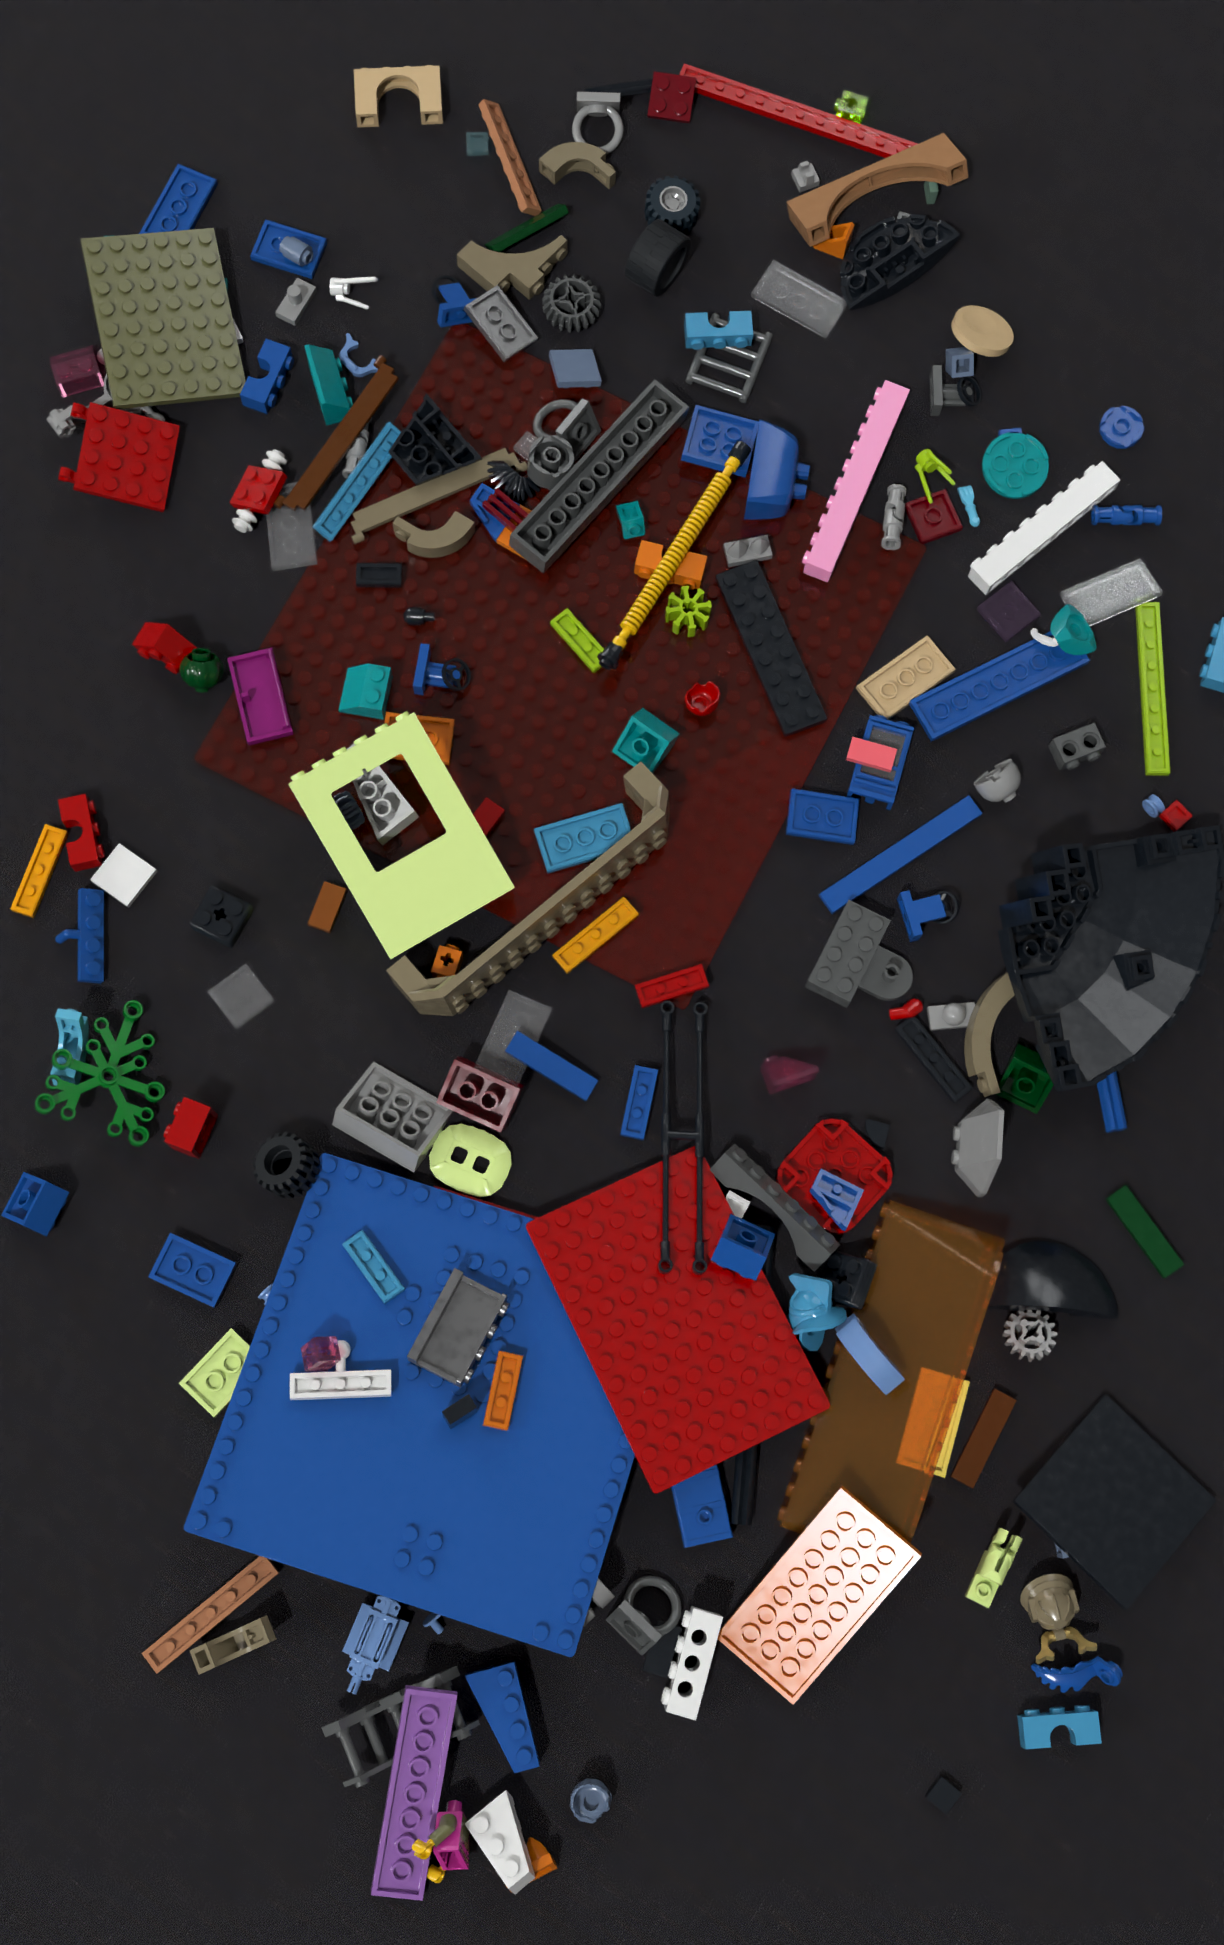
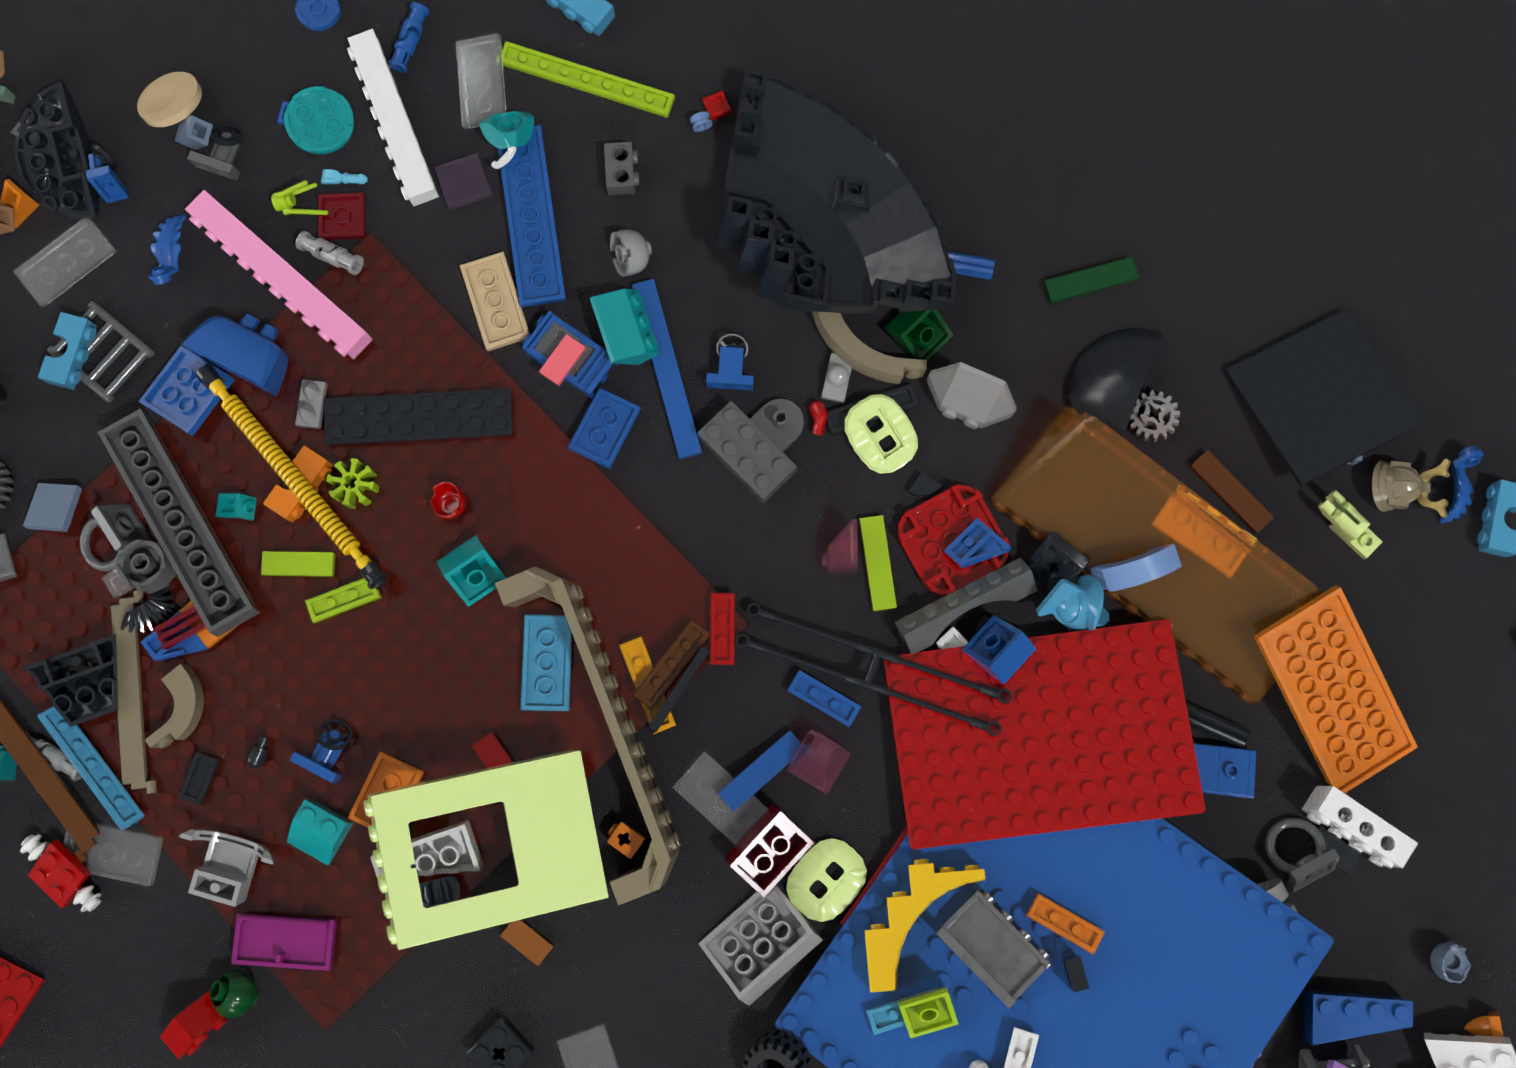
camera: 65 degrees left, 5 degrees up
(310, 625) = (226, 867): none -> light grey piece
(379, 1283) = (928, 1011): none -> lime slope
(428, 1228) = (885, 944): none -> yellow arch
(578, 1117) = (818, 761): none -> clear pink slope
(598, 591) = (298, 564): none -> lime tile
(600, 961) = (678, 690): none -> black tile
(622, 949) = (671, 664): none -> reddish brown tile
(786, 1112) = (878, 563): none -> lime tile
(842, 378) = (166, 249): none -> blue plant
(886, 302) = (103, 177): none -> blue piece
(924, 800) = (625, 327): none -> teal slope
(926, 1085) = (894, 424): none -> yellowish green piece

